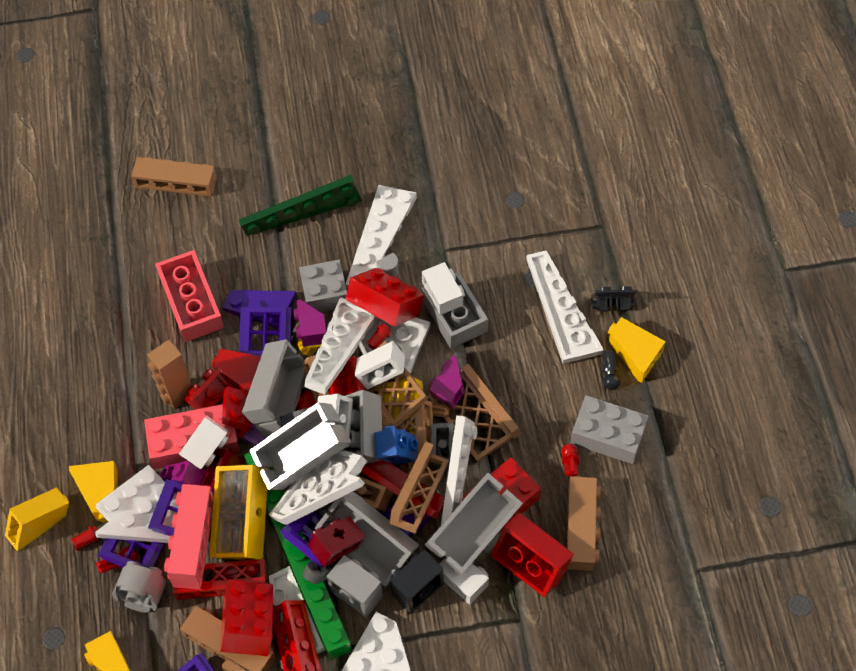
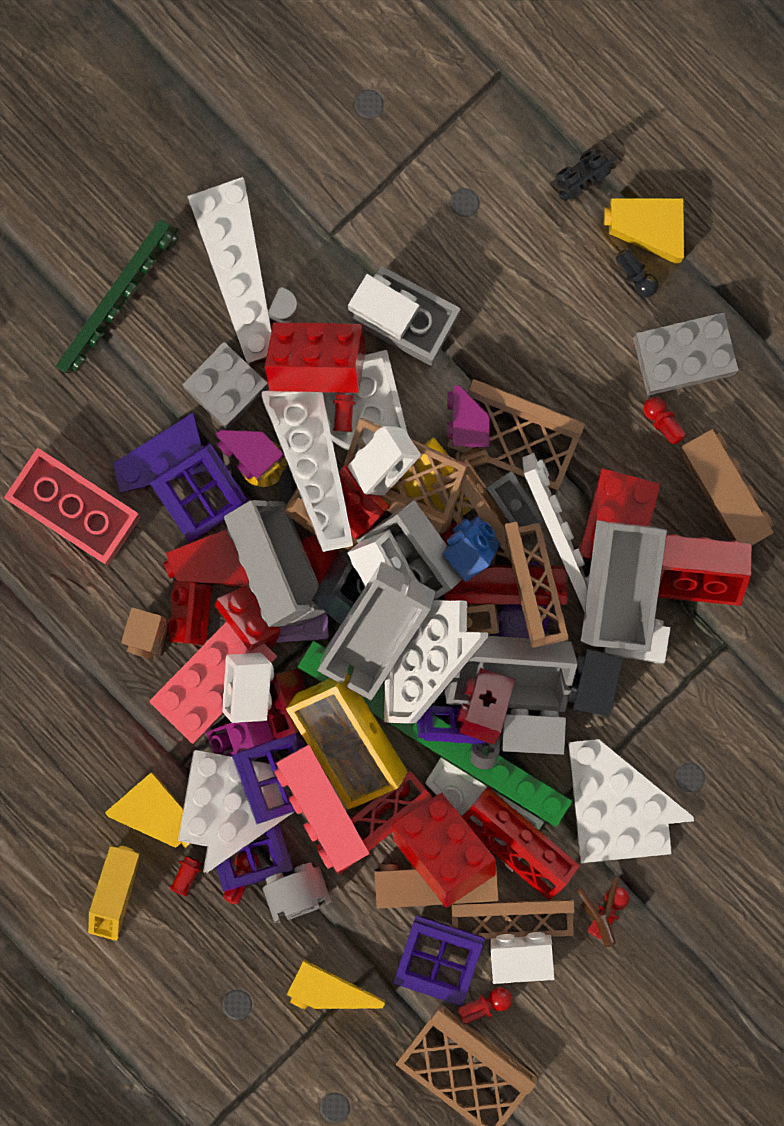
camera: 40 degrees left, 25 degrees up
(566, 322) = (547, 242): white wing -> none

